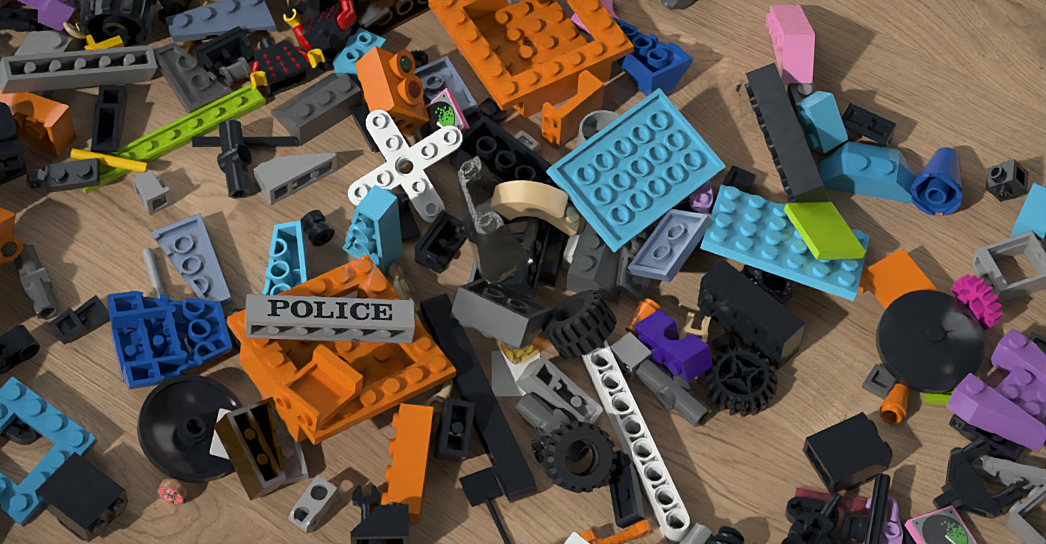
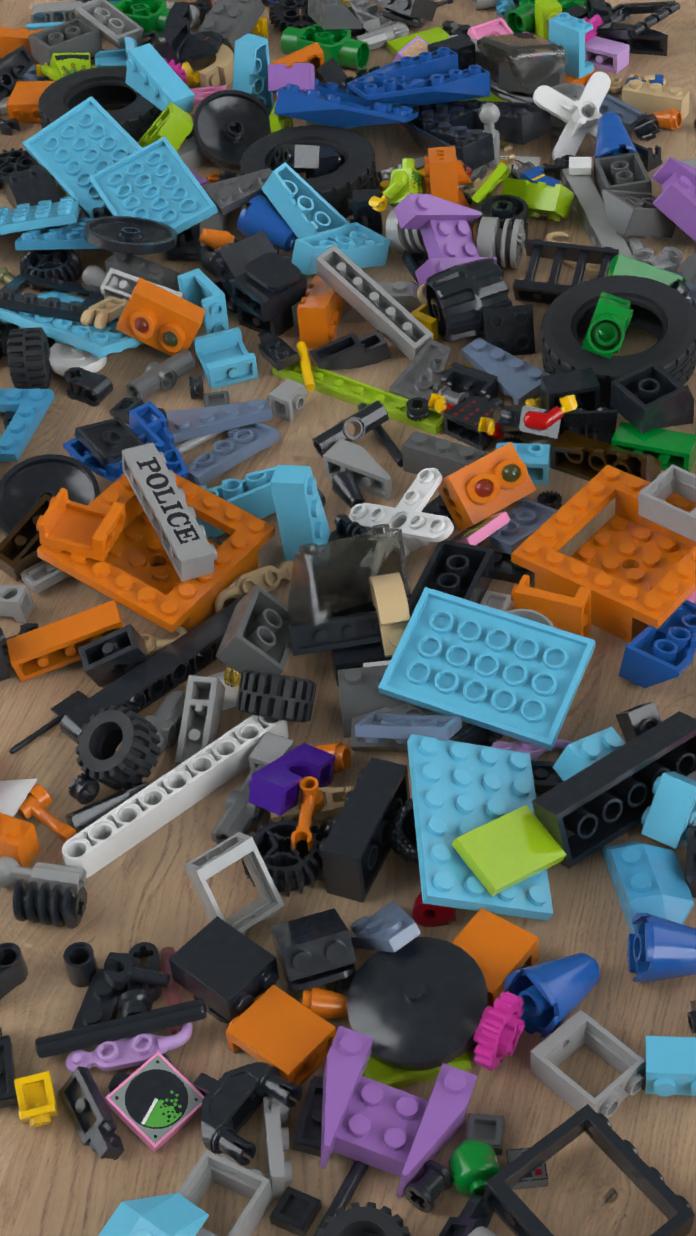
camera: 75 degrees right, 15 degrees down
(47, 222) = (225, 358): none -> medium azure panel
(76, 258) = (196, 387): none -> black bush
(106, 251) = (216, 398): none -> dark grey tile
(143, 255) = (214, 419): none -> sand blue wing
(147, 345) = (107, 439): none -> black tile
(234, 105) = (414, 413): none -> black bush
(315, 192) = (347, 488): none -> black cone
(595, 501) = (84, 789): none -> black bush
(721, 107) = (638, 720): none -> black brick
(737, 354) = (310, 803): none -> orange brick
(744, 149) = (586, 752): none -> medium azure brick
(775, 415) = (219, 858): none -> light grey window
(830, 305) = (432, 915): none -> dark red piece
(854, 386) = (314, 950): none -> black brick
(856, 337) = (384, 930): none -> sand blue wing
(919, 437) = (282, 1034): none -> orange panel
(947, 258) = (552, 990): none -> blue cone

